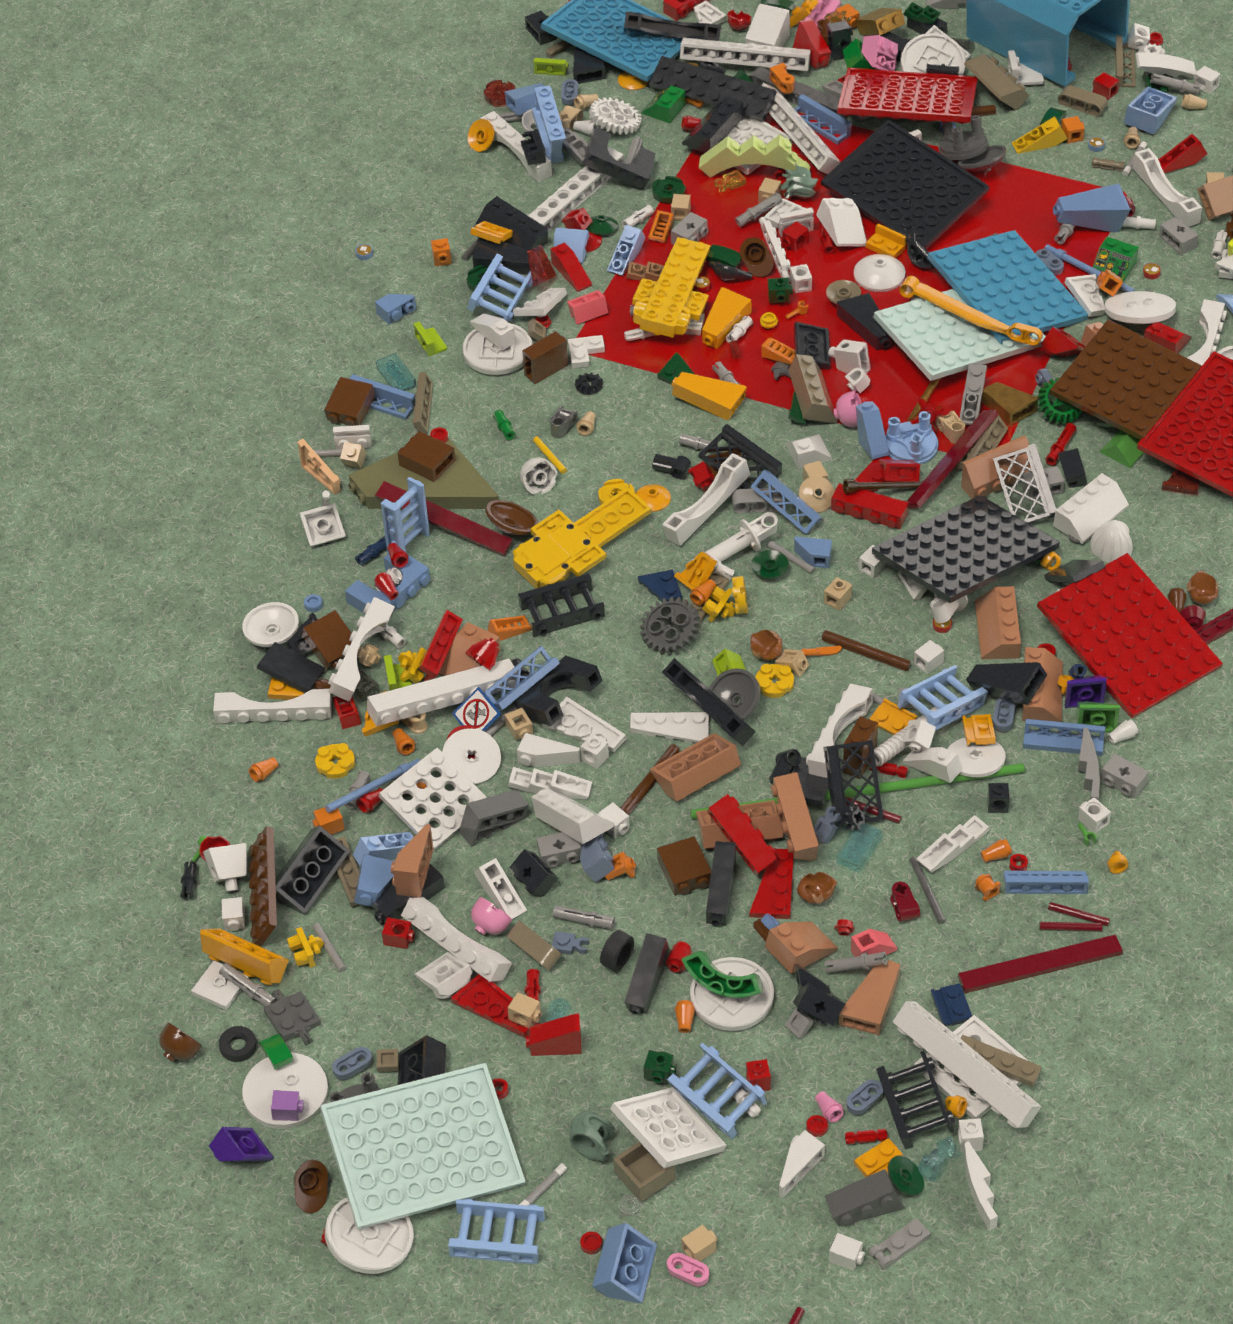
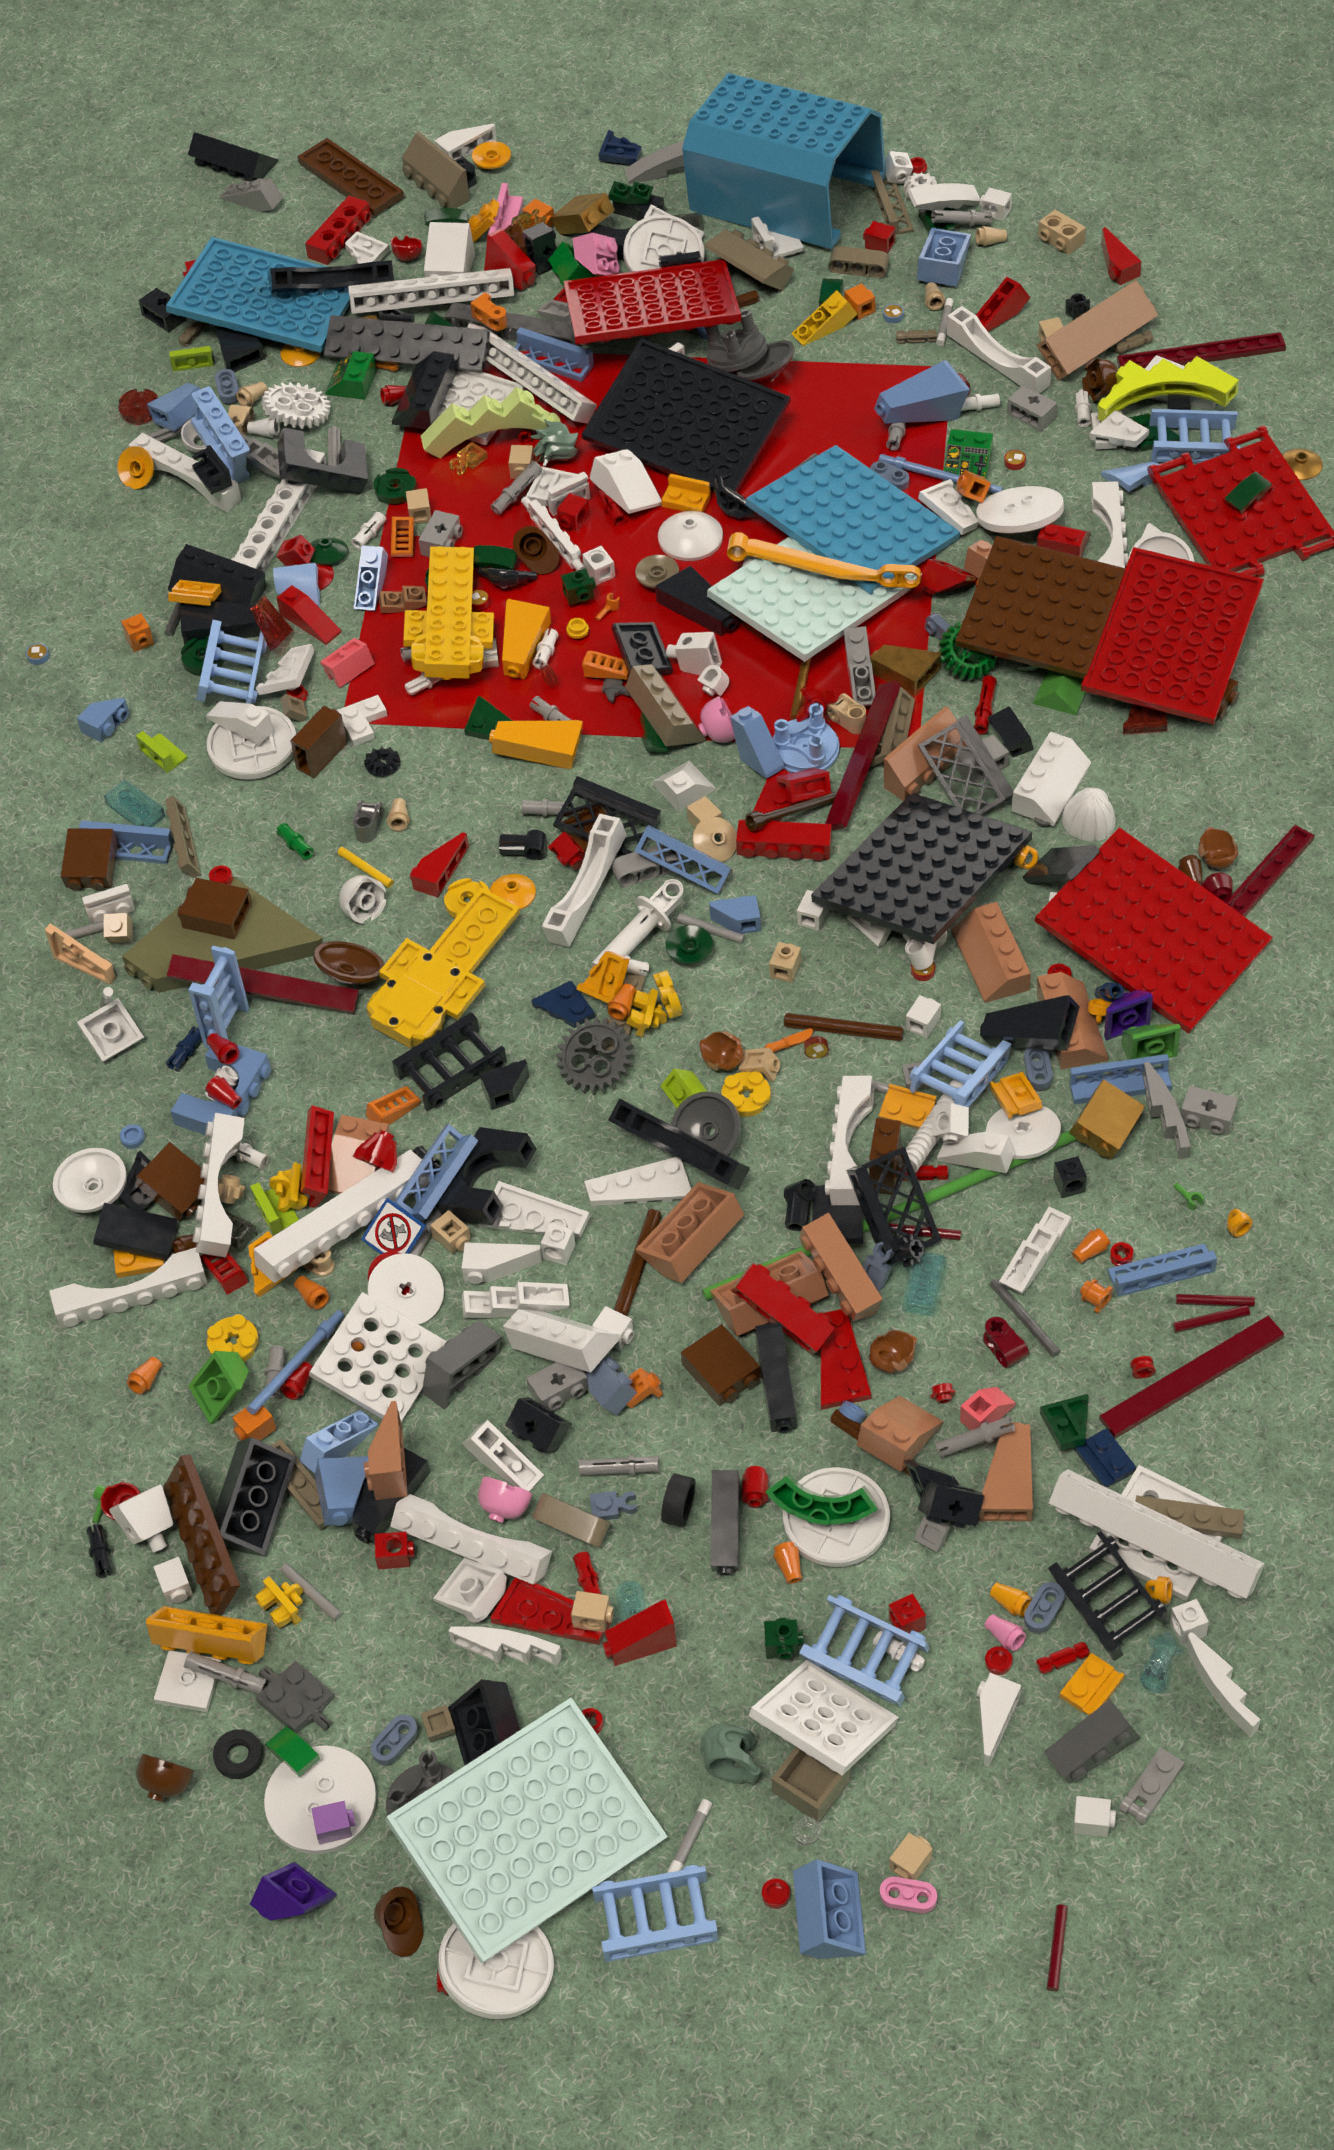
camera: 15 degrees left, 5 degrees up
(313, 786) = (218, 1383): none -> bright green slope
(450, 1016) = (495, 1643): none -> white slope
(597, 630) = (504, 1084): none -> black slope
(603, 466) = (438, 866): none -> red slope
(839, 660) = (816, 1047): none -> tile
(841, 1084) = (1011, 1599): none -> light orange cone
(905, 1175) = (1130, 1696): dark green dish -> none
(932, 970) = (1067, 1421): none -> dark green wing
(1003, 947) = (1142, 1367): none -> red bush
(1041, 763) = (1106, 1119): none -> pearl gold brick
(1094, 815) = (1190, 1178): white brick -> none
(1124, 731) = (1189, 1052): white cone -> none

